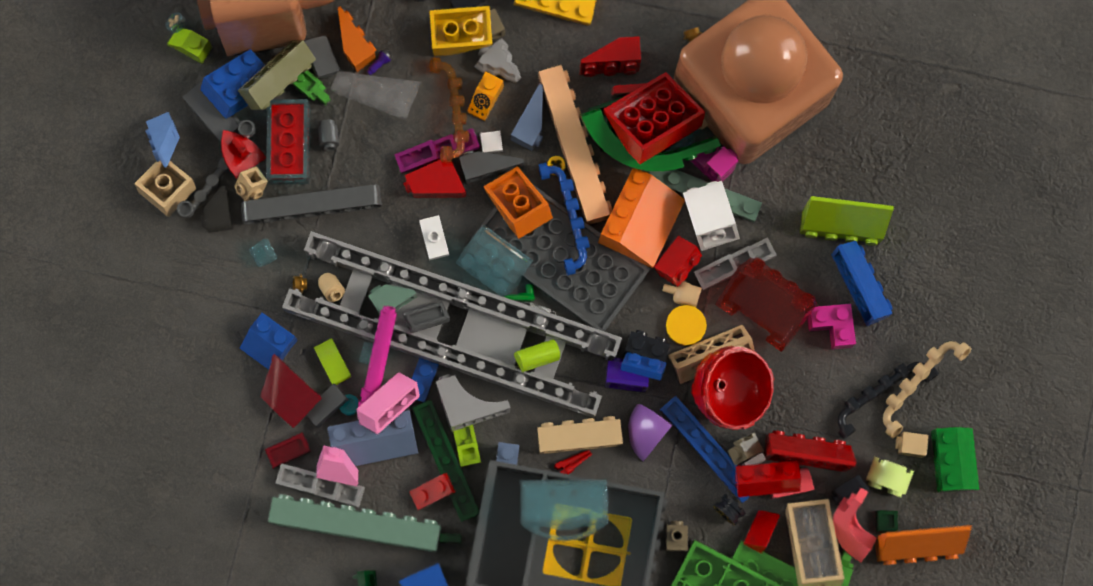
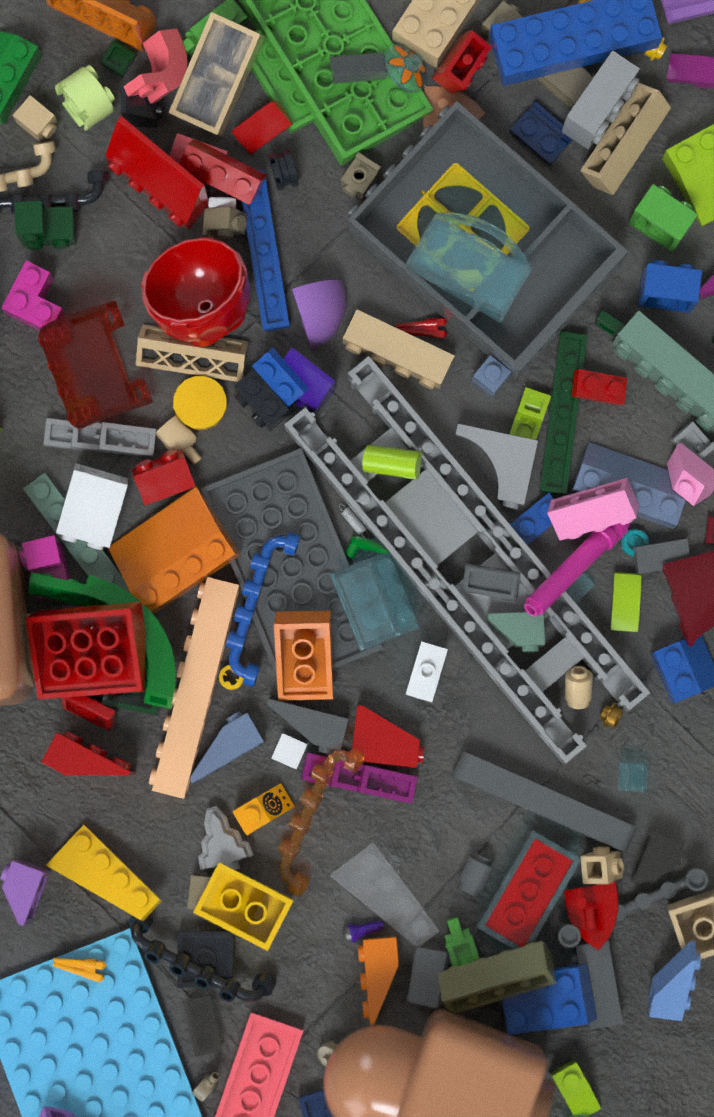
camera: 145 degrees left, 5 degrees up
(863, 373) = (44, 226): none -> dark green brick

